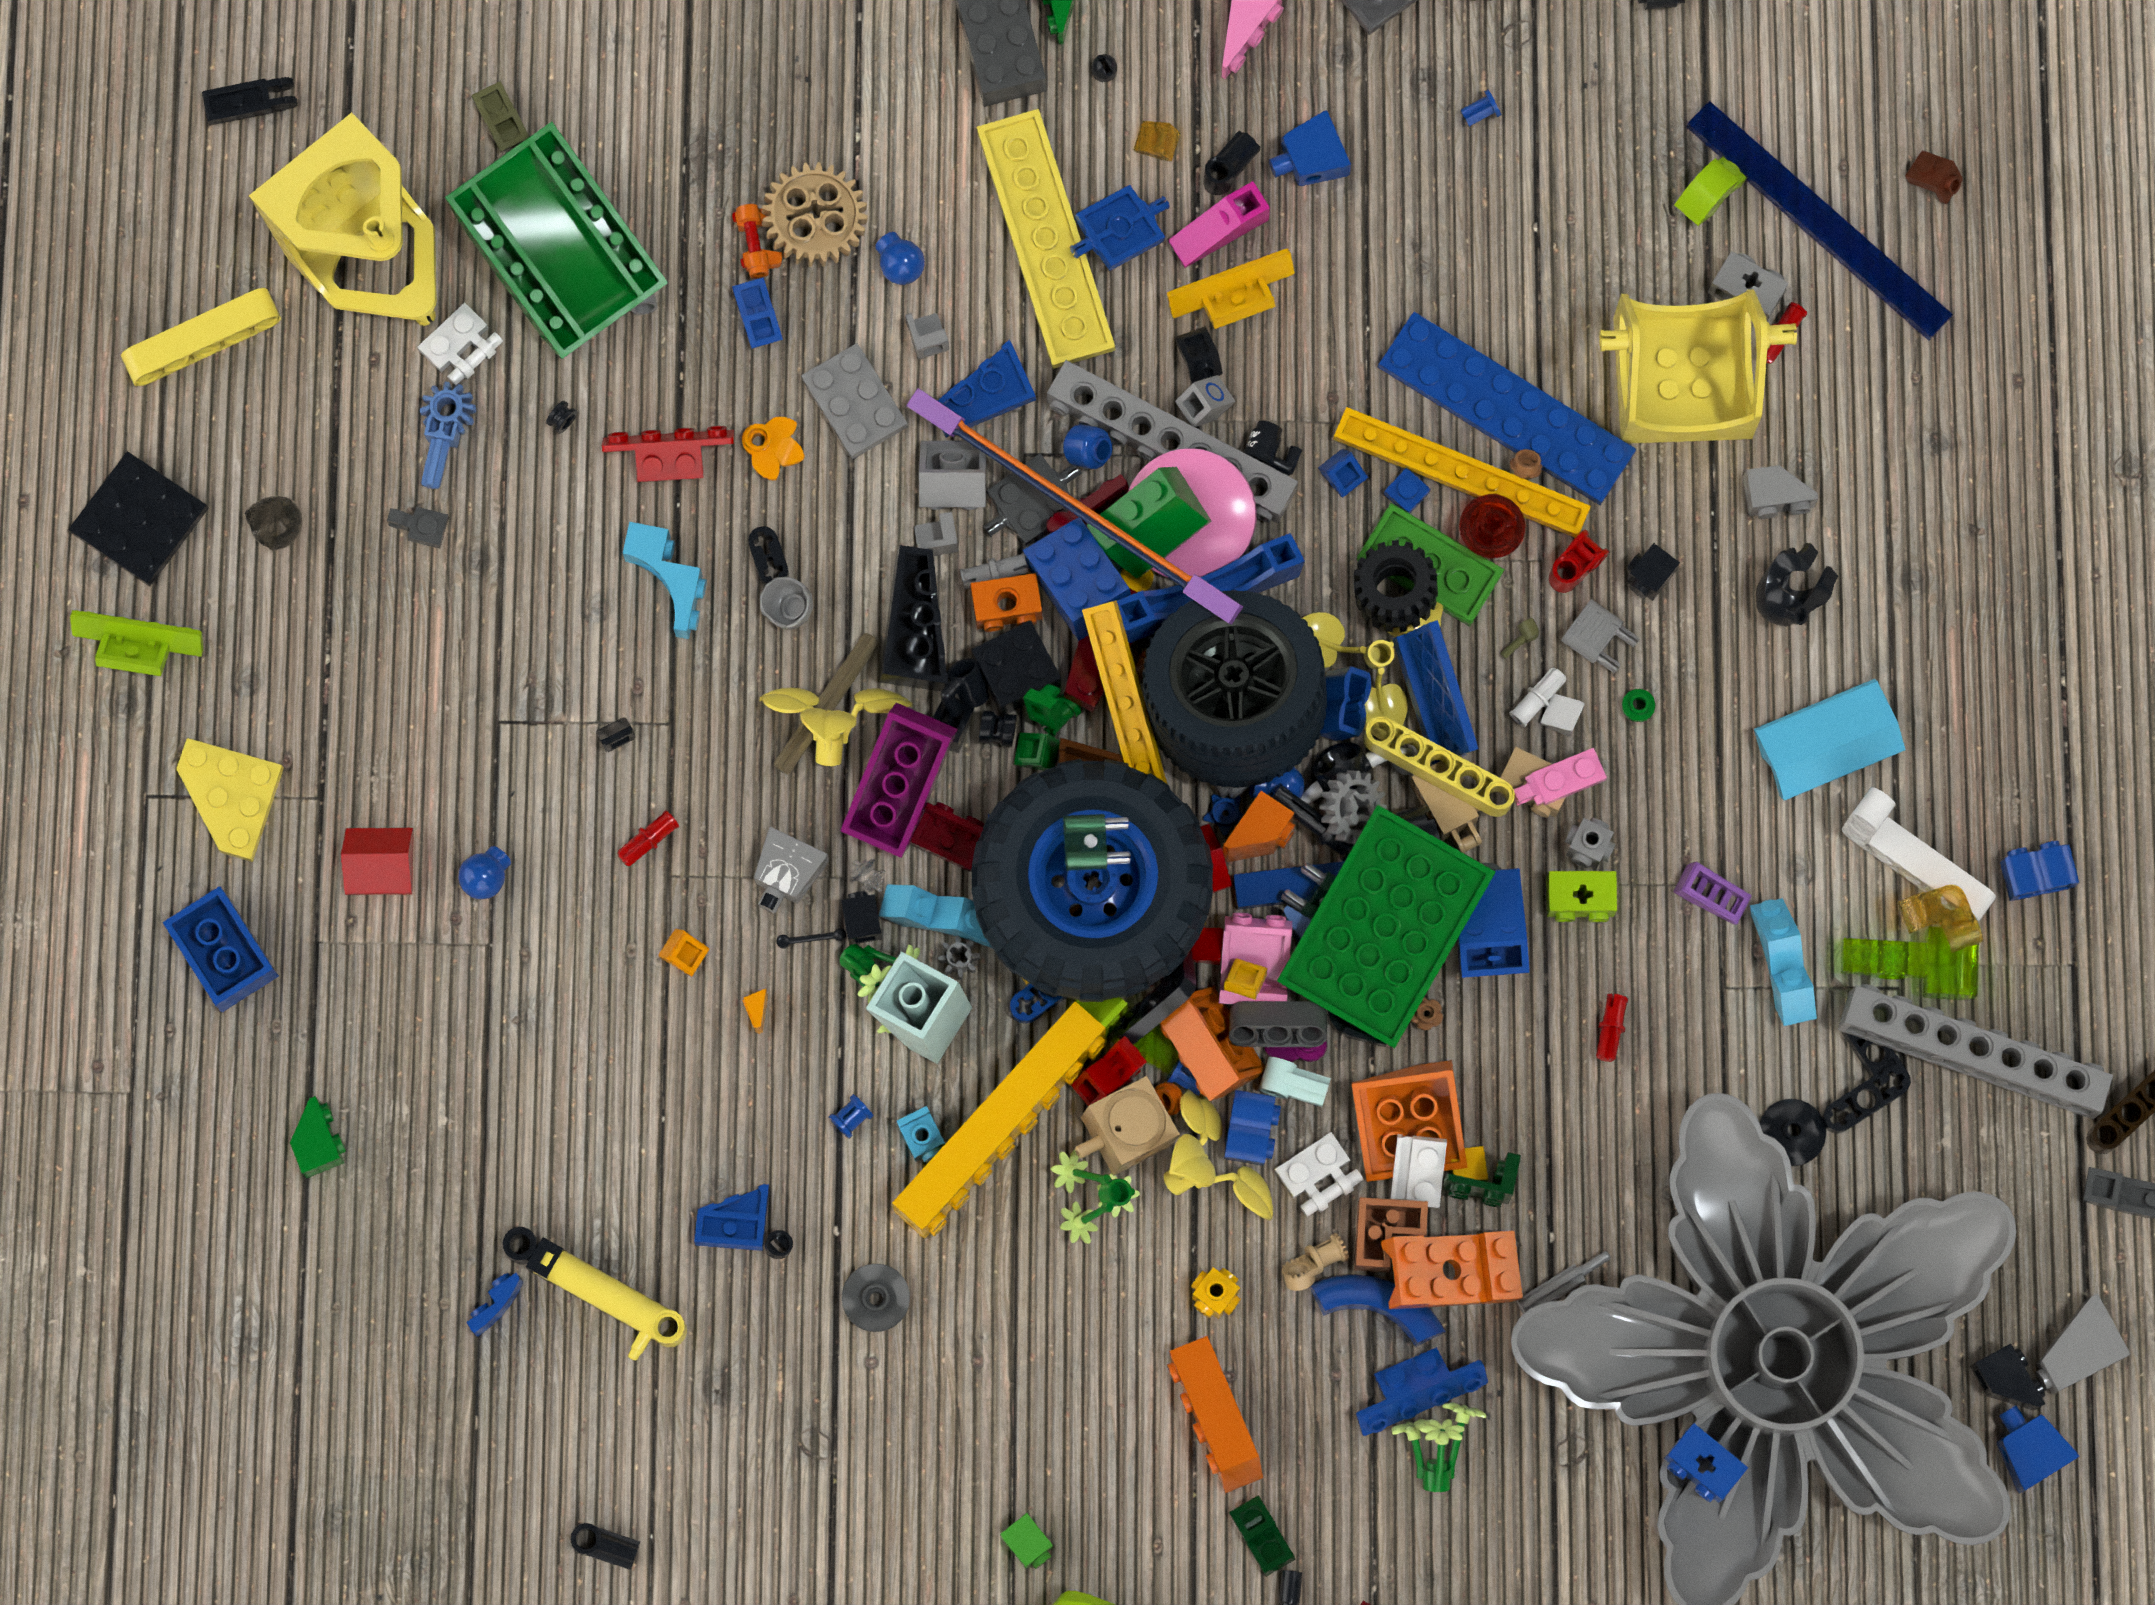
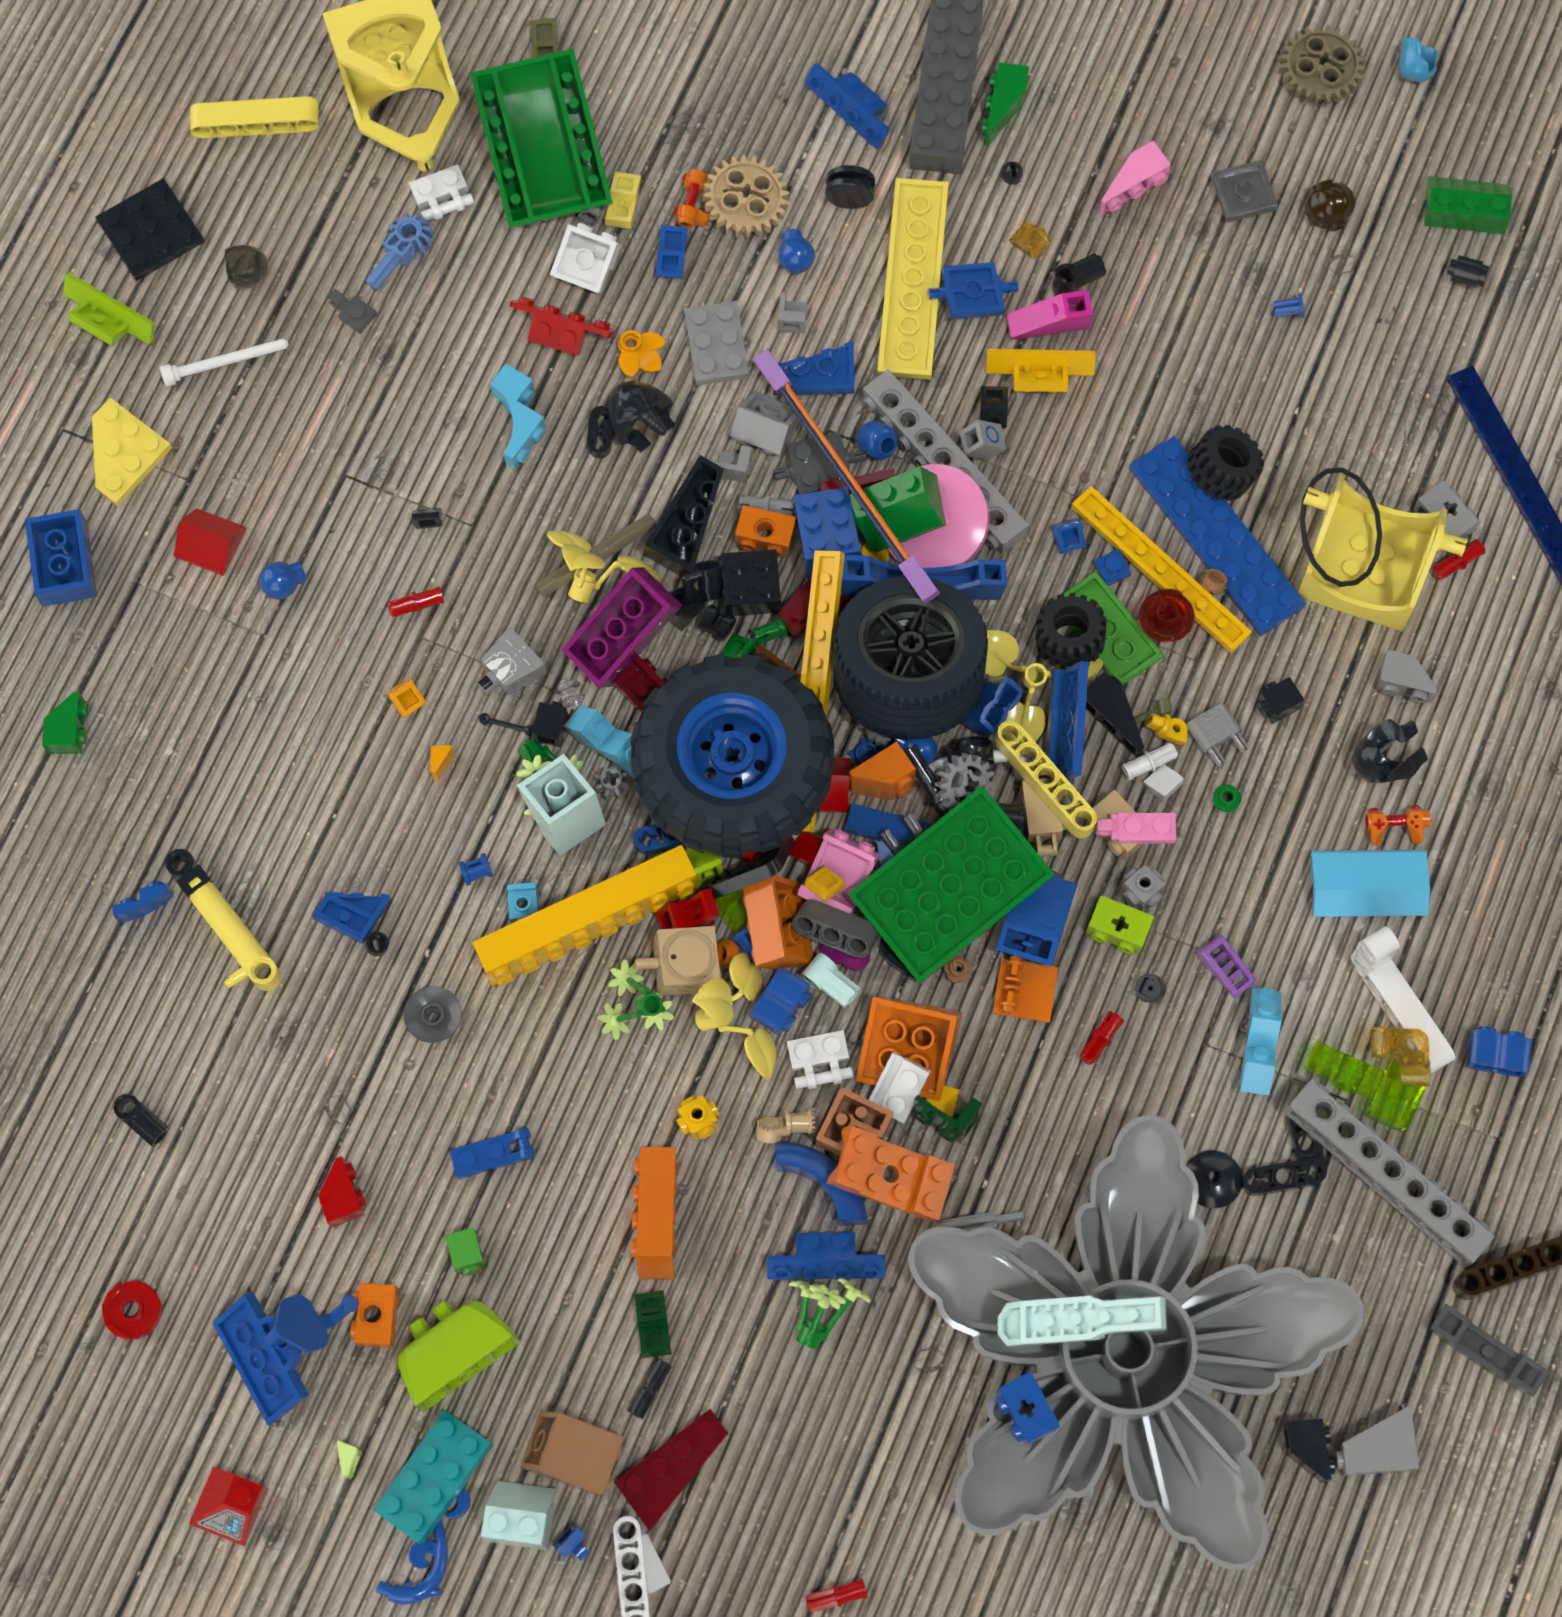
camera: 25 degrees right, 5 degrees down
(246, 681) = (172, 374): none -> white piece
(561, 417) = (491, 271): black bush -> none
(663, 359) = (585, 257): none -> white plate
(673, 263) = (624, 196): none -> light yellow slope
(786, 602) = (597, 467): light grey hair -> none
(805, 509) = (639, 402): none -> black piece
(861, 1537) = (339, 1196): none -> red slope
(886, 52) = (852, 102): none -> blue bracket
(930, 158) = (850, 187): none -> black head
(1007, 1423) = (492, 1153): none -> blue plate
(1045, 706) = (759, 617): green tile -> none
(1086, 842) = (735, 715): clear green piece -> none
(1264, 445) = (1015, 490): black piece -> none
(1312, 153) = (1144, 290): blue torso -> none
(1478, 658) = (1111, 708): none -> black slope
(1494, 305) = (1225, 462): none -> black tyre
(1508, 1007) = (1025, 990): none -> orange hinge
(1537, 651) = (1164, 725): none -> yellow piece
(1580, 558) = (1227, 668): red piece -> none
(1642, 951) = (1150, 988): none -> black tile
(1692, 385) = (1377, 520): none -> black piece
(1710, 190) = (1445, 429): lime brick -> none
(1723, 1350) = (1077, 1319): none -> light aqua piece
(1849, 648) = (1415, 820): none -> orange piece
(2032, 1449) = (1306, 1513): blue torso -> none

